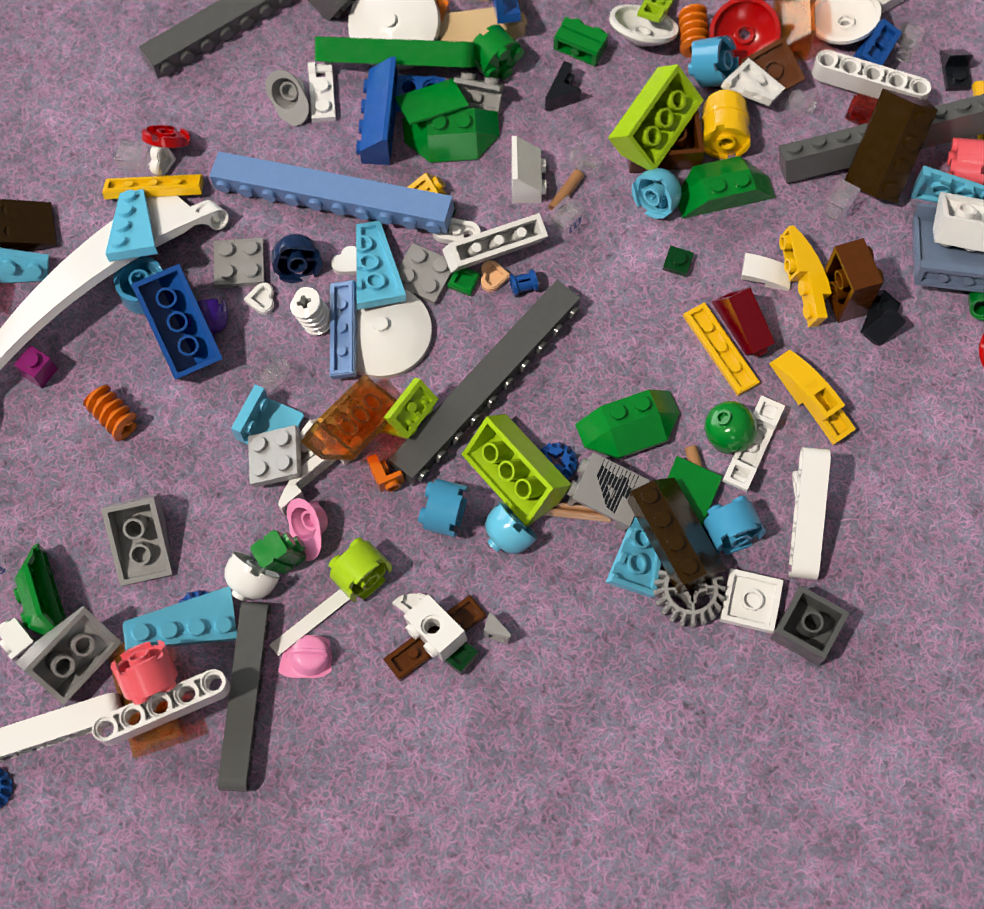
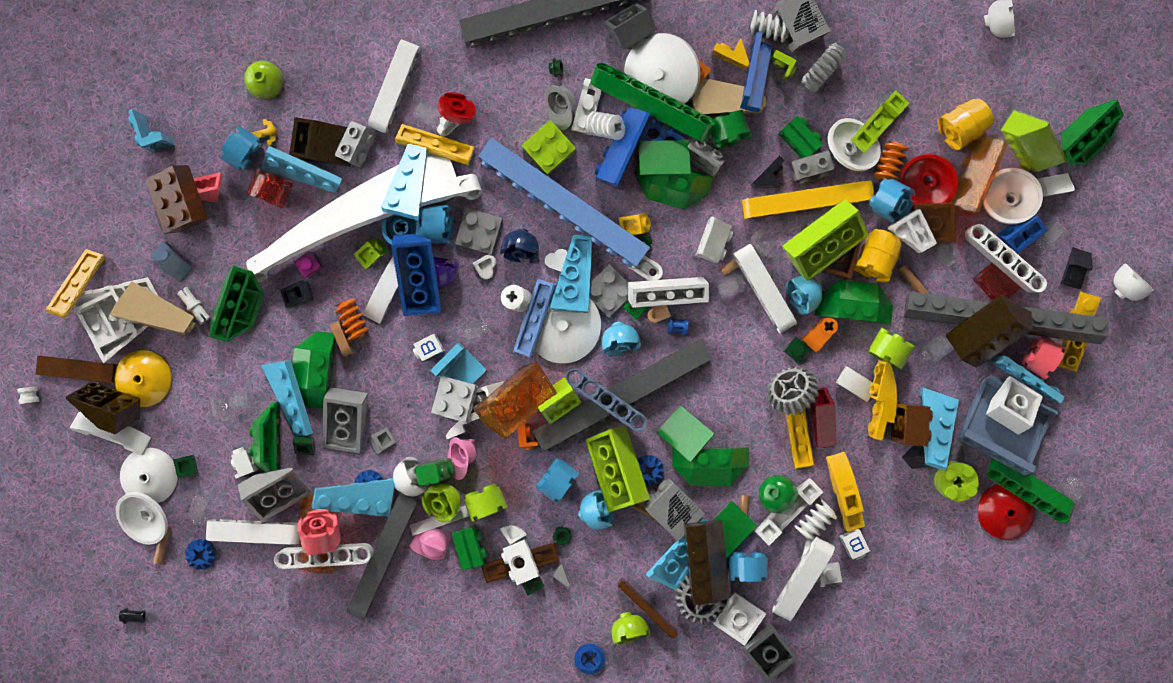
camera: 25 degrees right, 20 degrees up
(29, 407) = (296, 293): none -> black slope
(49, 525) = (286, 389): none -> medium azure wing
(56, 214) = (355, 144): none -> light grey bracket
(78, 491) = (314, 367): none -> green wedge
(82, 142) = (392, 87): none -> white beam
(93, 589) = (303, 445): none -> dark green plate
(105, 440) = (345, 347): none -> medium nougat beam
(111, 329) = (371, 252): none -> lime bracket
(142, 368) = (382, 294): none -> white slope
(185, 254) = (436, 223): none -> dark azure brick
(196, 549) = (382, 440): none -> light grey slope
(220, 411) = (428, 347): none -> white brick
(270, 63) = (556, 67): none -> dark green plate
(292, 141) = (549, 148): none -> lime brick
(301, 589) = (442, 501): none -> lime cylinder
(348, 94) = (605, 125): none -> white piece
(358, 639) = (469, 547): none -> green brick
(459, 316) = (619, 339): none -> medium azure cylinder
(474, 575) = (562, 540): none -> dark green plate
(478, 391) = (613, 406): none -> sand blue beam
(584, 396) = (685, 433): none -> window
(589, 726) = (588, 667): none -> blue gear
(603, 104) = (807, 199): none -> yellow beam
(607, 62) = (812, 166): none -> light grey bracket
(609, 204) = (764, 288): none -> white beam
(613, 665) = (628, 629): none -> lime cylinder
(626, 631) = (647, 608): none -> reddish brown tile
(693, 297) = (793, 395): none -> light grey gear
(697, 232) = (818, 336): none -> orange piece
(770, 138) = (912, 279): none -> medium nougat piece
(787, 209) = (891, 349): none -> lime brick
(791, 440) = (816, 521): none -> white piece
(840, 504) = (830, 575): none -> white bracket
(853, 453) = (854, 544): none -> white brick
(896, 291) = (942, 427): none -> medium azure wing
(939, 334) = (964, 488): none -> lime brick

